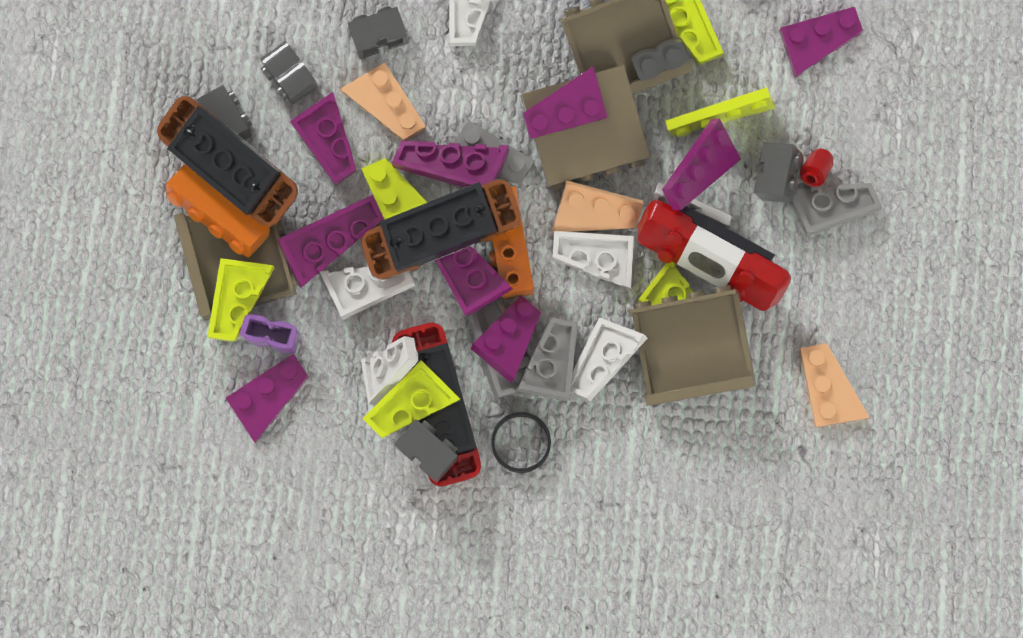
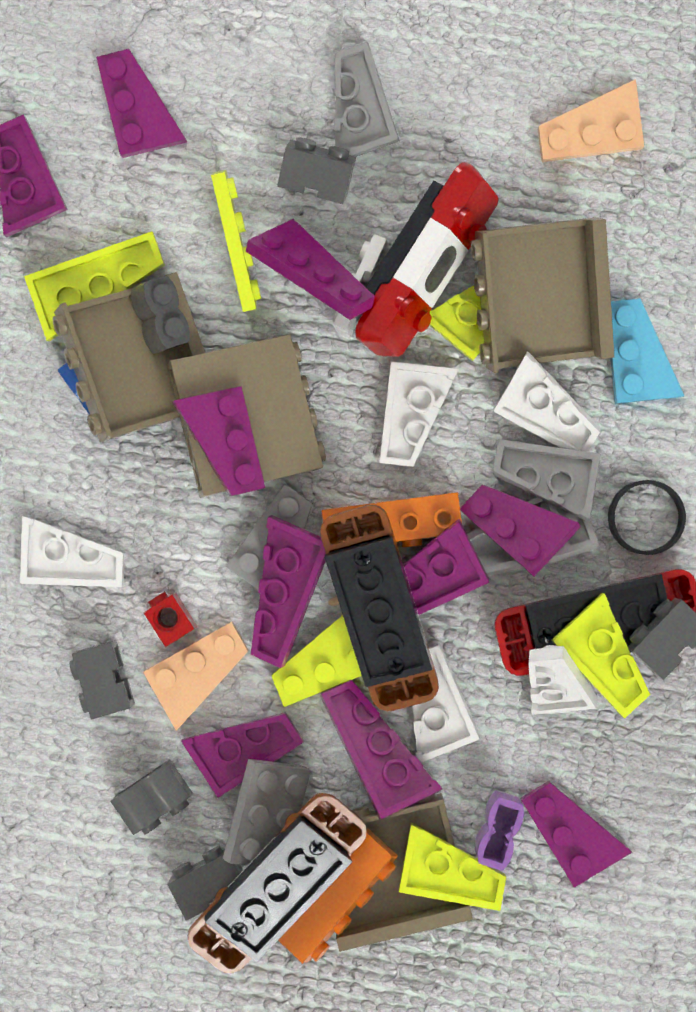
camera: 85 degrees left, 10 degrees up
(289, 152) = (265, 801): none -> light grey plate
(426, 90) = (166, 633): none -> red brick
(595, 209) = (353, 408): light nougat wing -> none
(648, 429) = (639, 360): none -> medium azure wing
(816, 167) = (312, 120): red brick -> none

